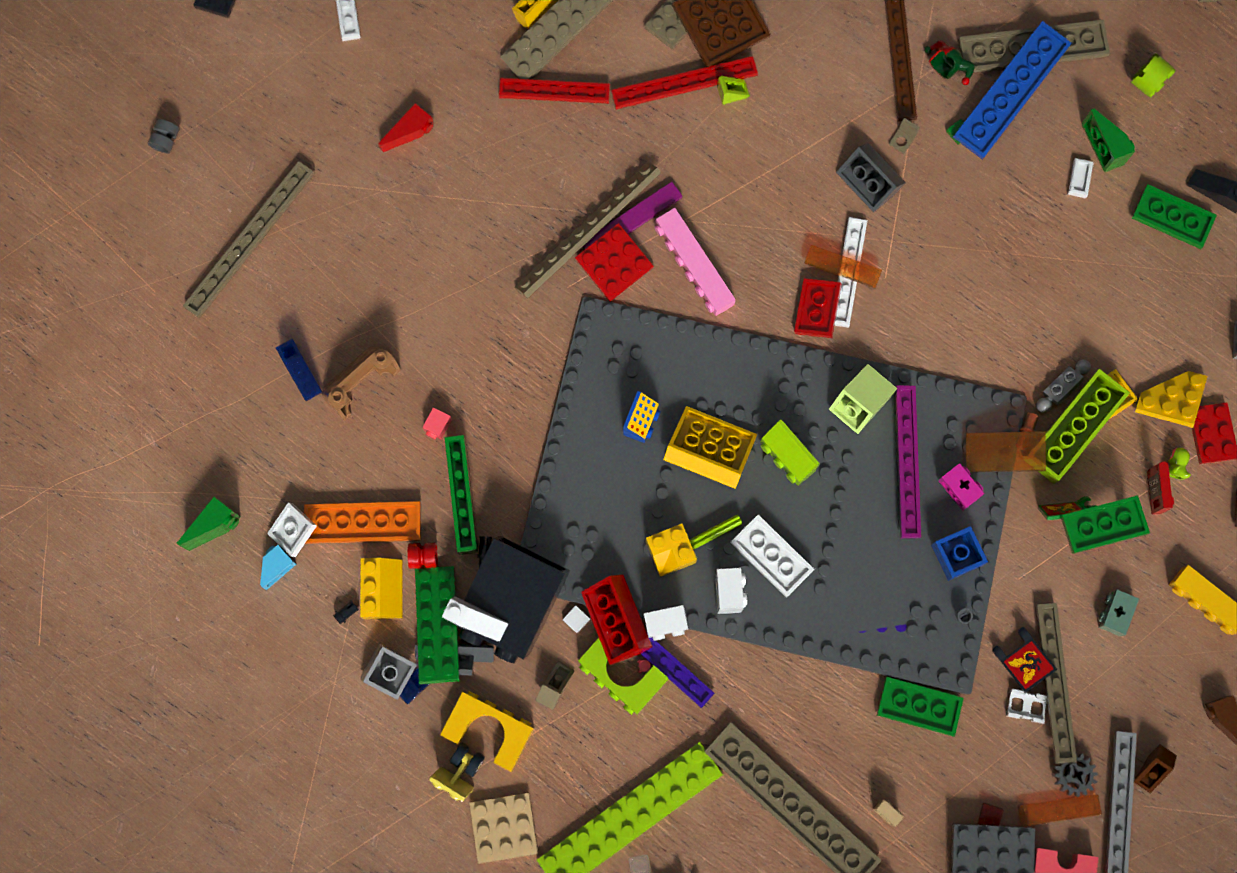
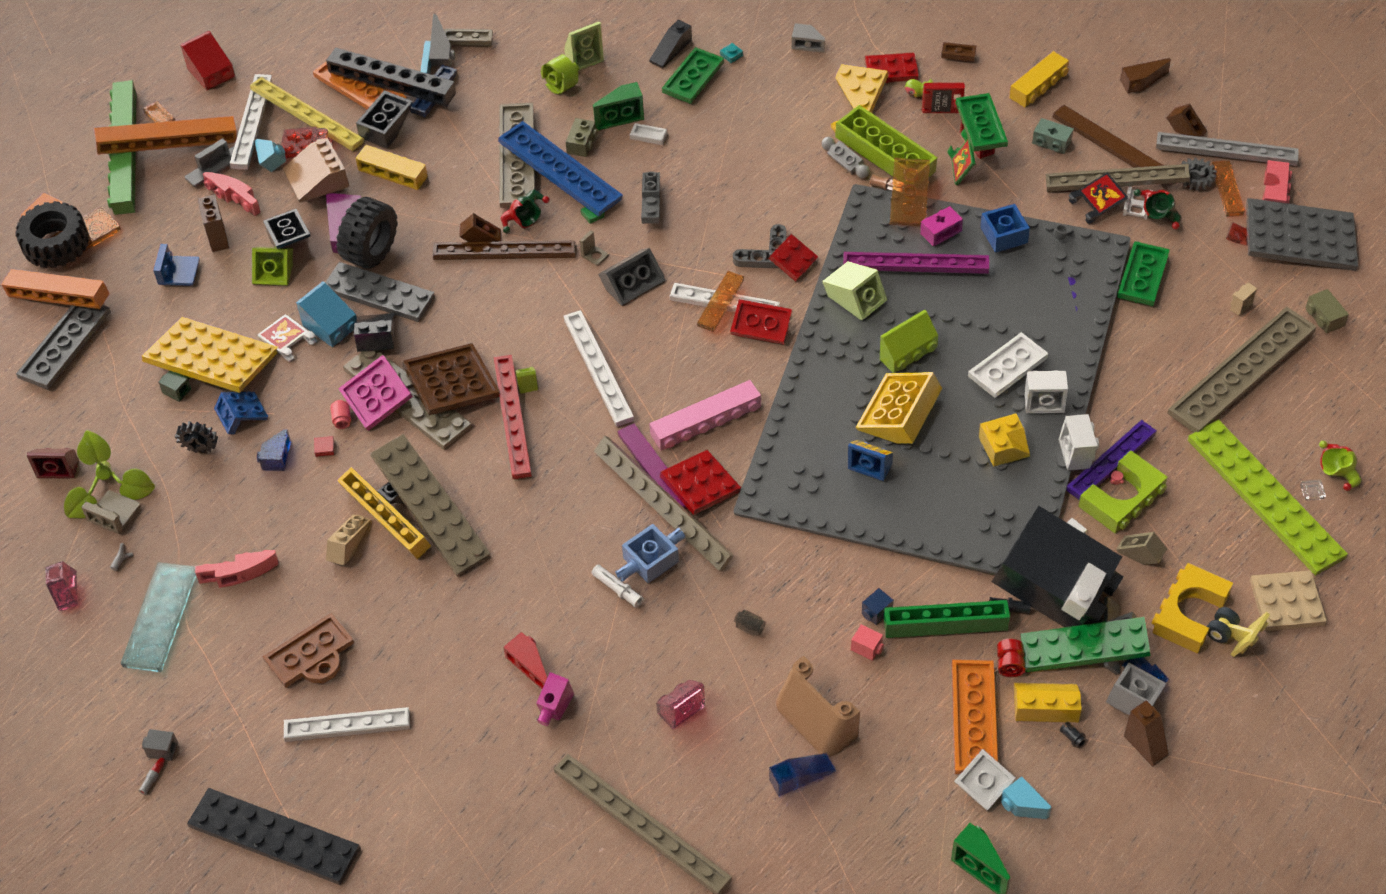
camera: 85 degrees left, 25 degrees down
(339, 677) = (1147, 733): none -> reddish brown slope
(365, 153) = (554, 698): none -> dark pink torso
(365, 260) = (681, 703): none -> clear pink slope
(455, 317) = (749, 622): none -> clear smoke brick
(476, 431) = (874, 606): none -> dark blue brick
(486, 204) = (623, 590): none -> white pin
(524, 233) = (650, 553): none -> medium blue brick
(554, 90) = (503, 527): red plate -> none
(616, 619) = (1076, 484): red slope -> none
(715, 531) = (981, 404): lime axle -> none
(749, 156) = (598, 369): none -> white plate
(909, 336) = (793, 257): none -> red plate
(917, 316) = (745, 253): none -> dark grey beam
(918, 23) = (479, 230): none -> reddish brown slope
(980, 187) = (650, 197): none -> dark grey slope
(1015, 728) = (1160, 205): none -> dark green piece
(1063, 108) = (581, 137): none -> olive brick
(1119, 679) = (1103, 138): none -> reddish brown tile
(1192, 96) = (585, 46): none -> yellowish green slope
(1217, 256) = (731, 53): none -> teal plate

